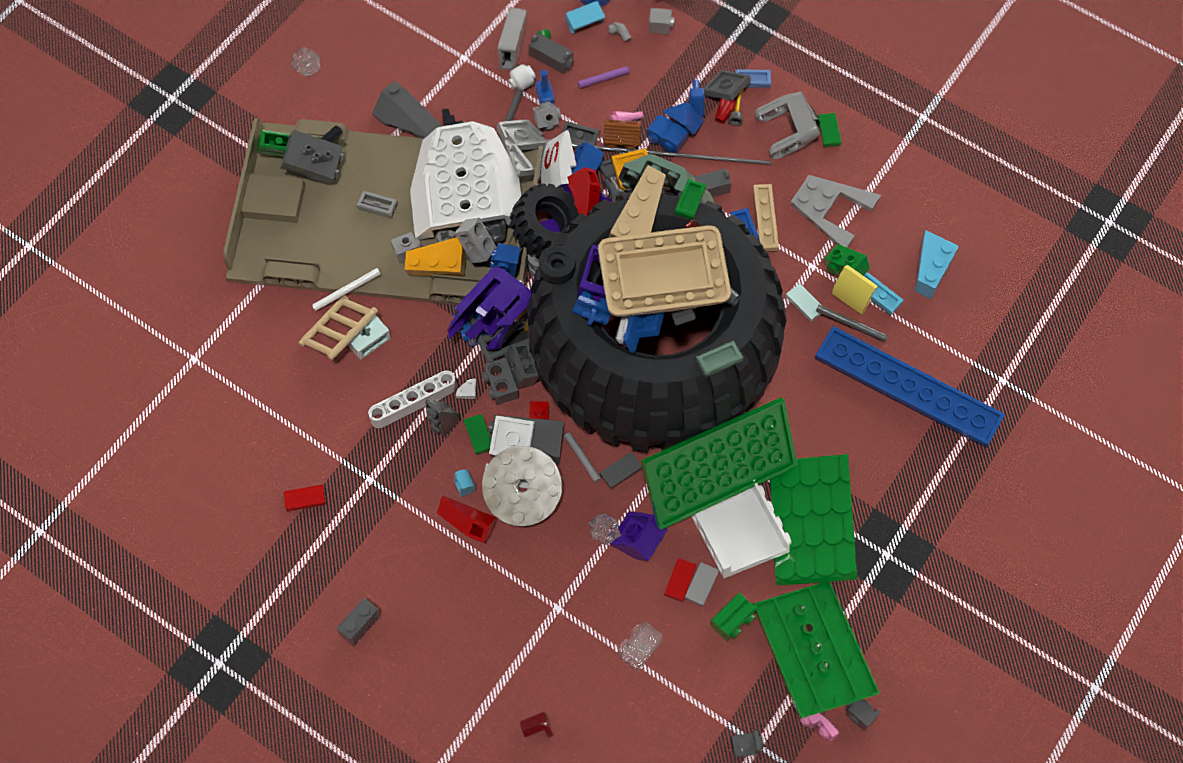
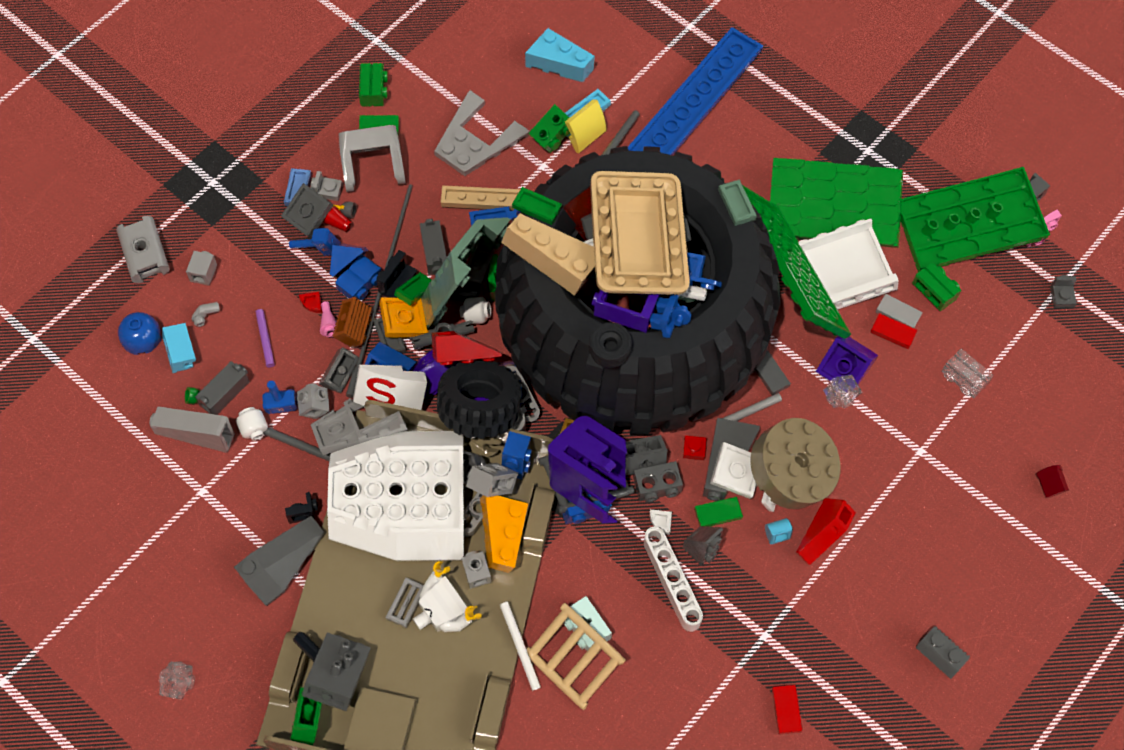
camera: 85 degrees left, 0 degrees up
(375, 226) = (442, 604): none -> torso
(643, 104) = (311, 302): none -> red tile
(674, 154) = (394, 275): none -> black bracket
(755, 97) = (327, 187): none -> light grey bracket
(869, 117) = (372, 84): none -> green brick

